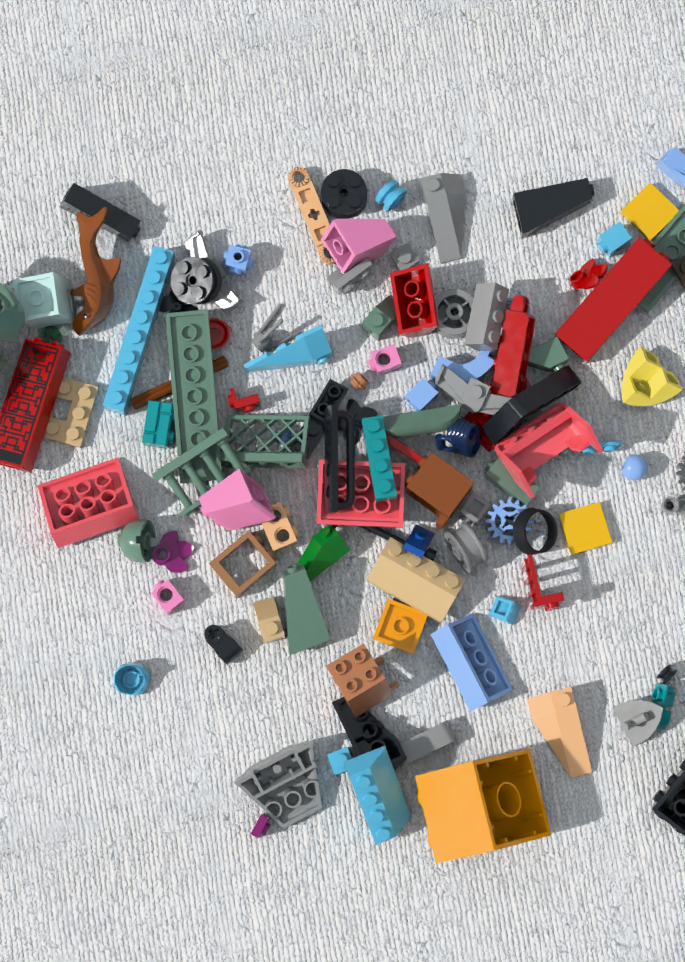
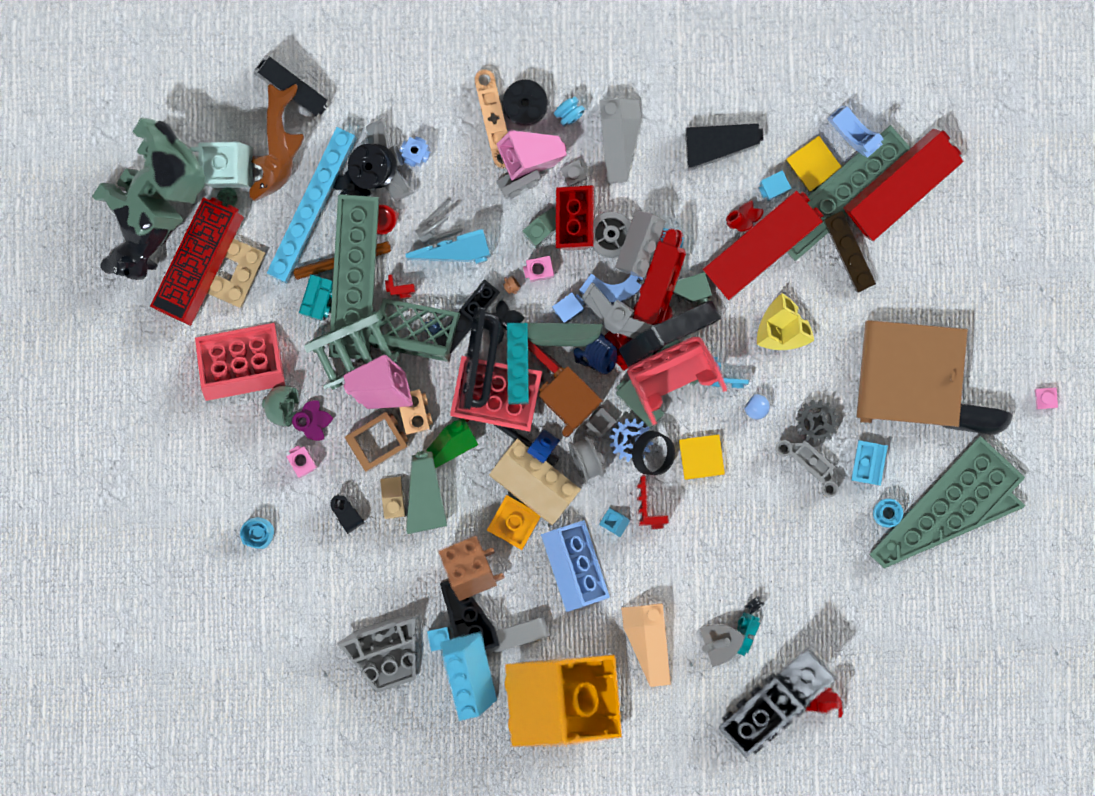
camera: 10 degrees right, 5 degrees up
(261, 826) = (356, 688): magenta plate -> none

